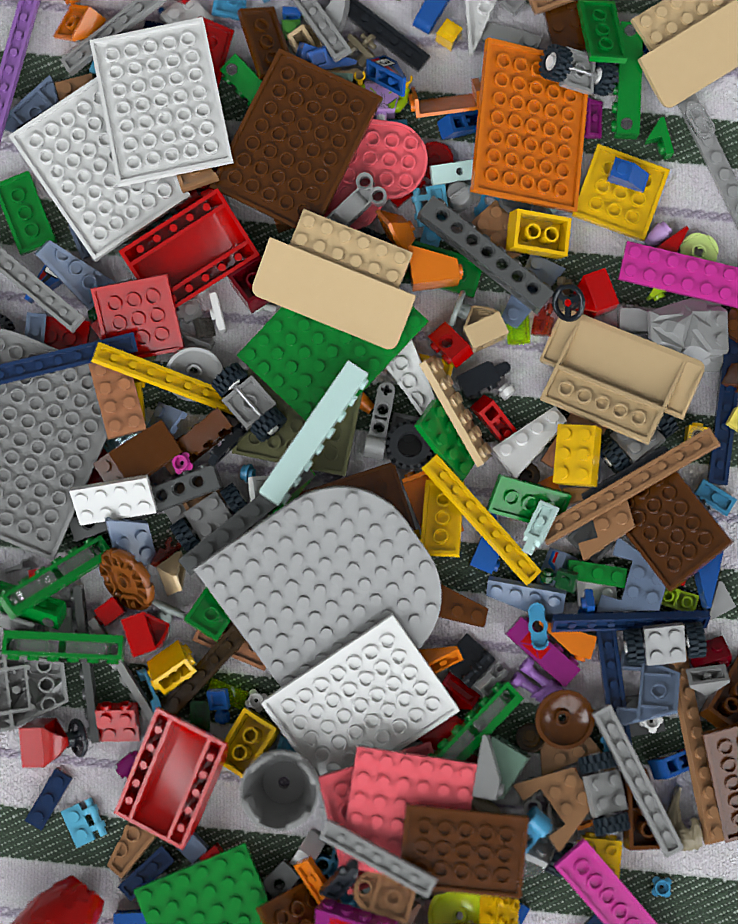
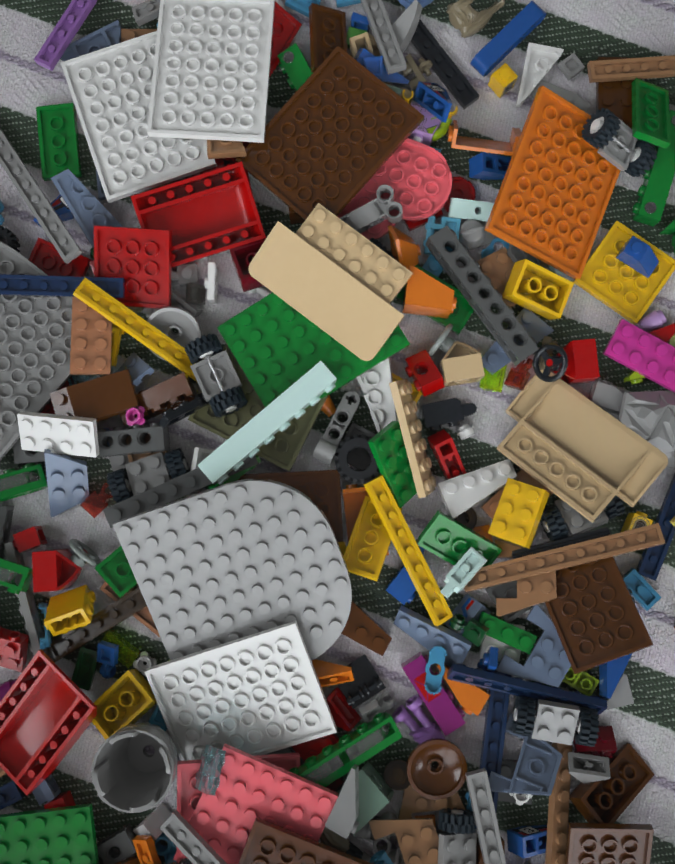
camera: 15 degrees right, 0 degrees up
(35, 326) = (36, 249): sand blue panel -> none
(127, 579) = (51, 513): dark orange plate -> none
(172, 574) = (96, 519): tan slope -> none
(247, 471) = (197, 441): dark azure plate -> none
(351, 771) = (210, 769): none -> clear light blue plate
(593, 123) = (618, 197): magenta slope -> none

